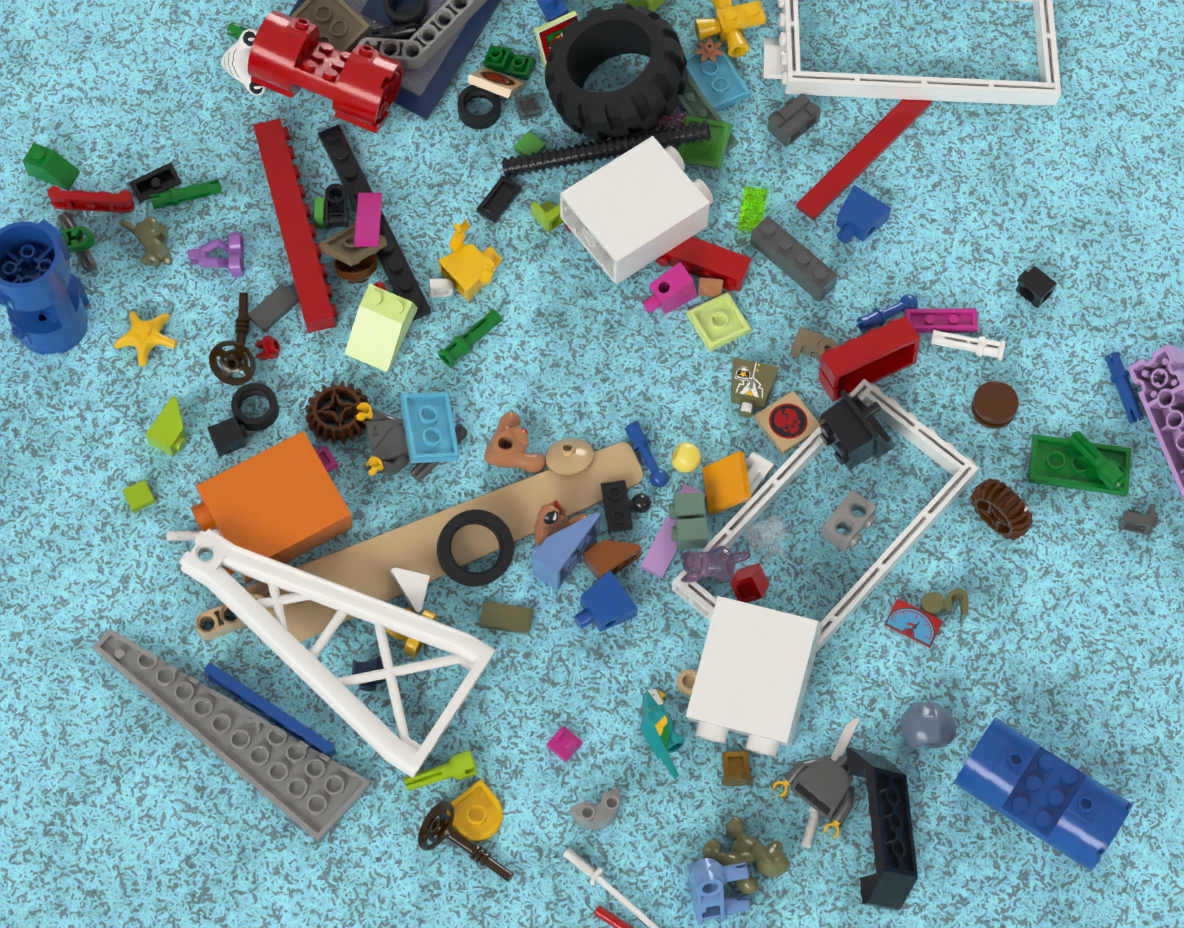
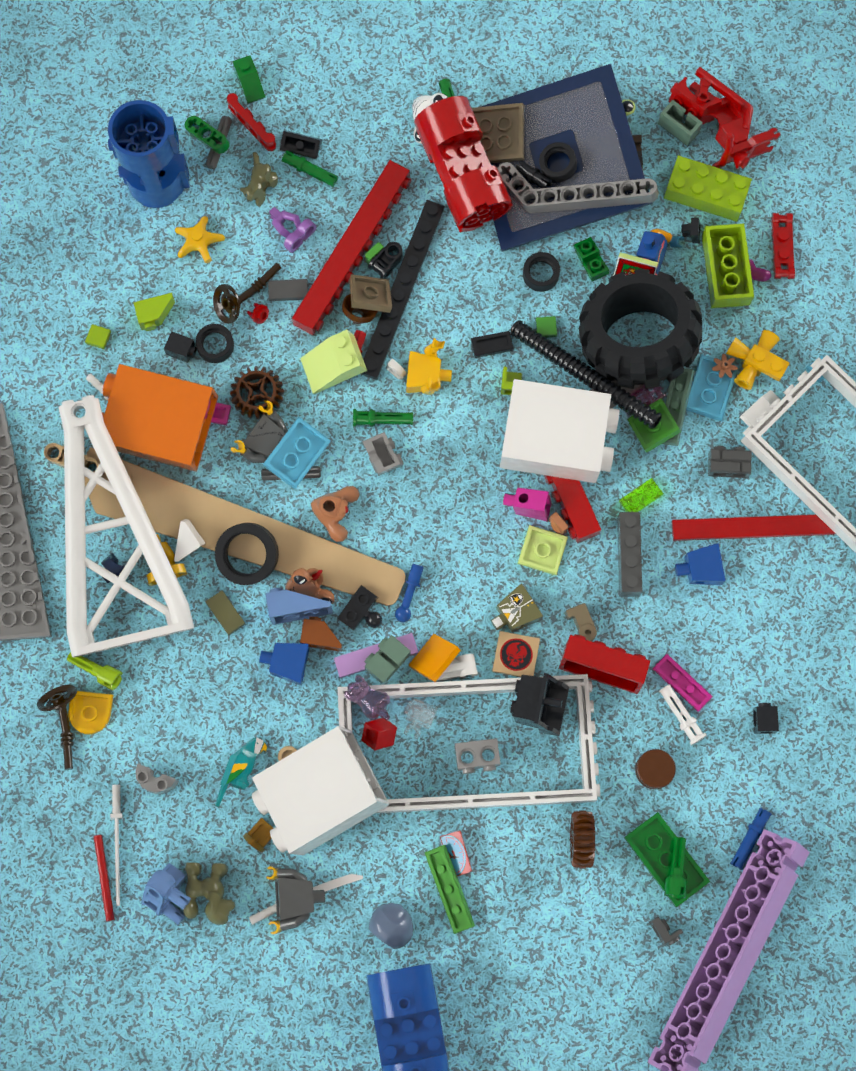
camera: 45 degrees right, 10 degrees up
(269, 710) = (38, 538): blue tile -> none
(368, 220) = (393, 286): dark pink tile -> none
(496, 82) = (566, 265): tan tile -> none
(503, 366) = (382, 454): none -> light grey cylinder
(528, 106) = (572, 299): clear smoke tile -> none
(564, 744) = (180, 721): dark pink tile -> none
(569, 456) = (359, 555): tan dish -> none
(686, 457) = (429, 618): light yellow piece -> none
(879, 316) = (673, 650): blue pin -> none
(890, 830) = (303, 960): black slope -> none
(934, 602) = (480, 855): olive leg -> none
(939, 656) = (449, 889): none -> bright green tile

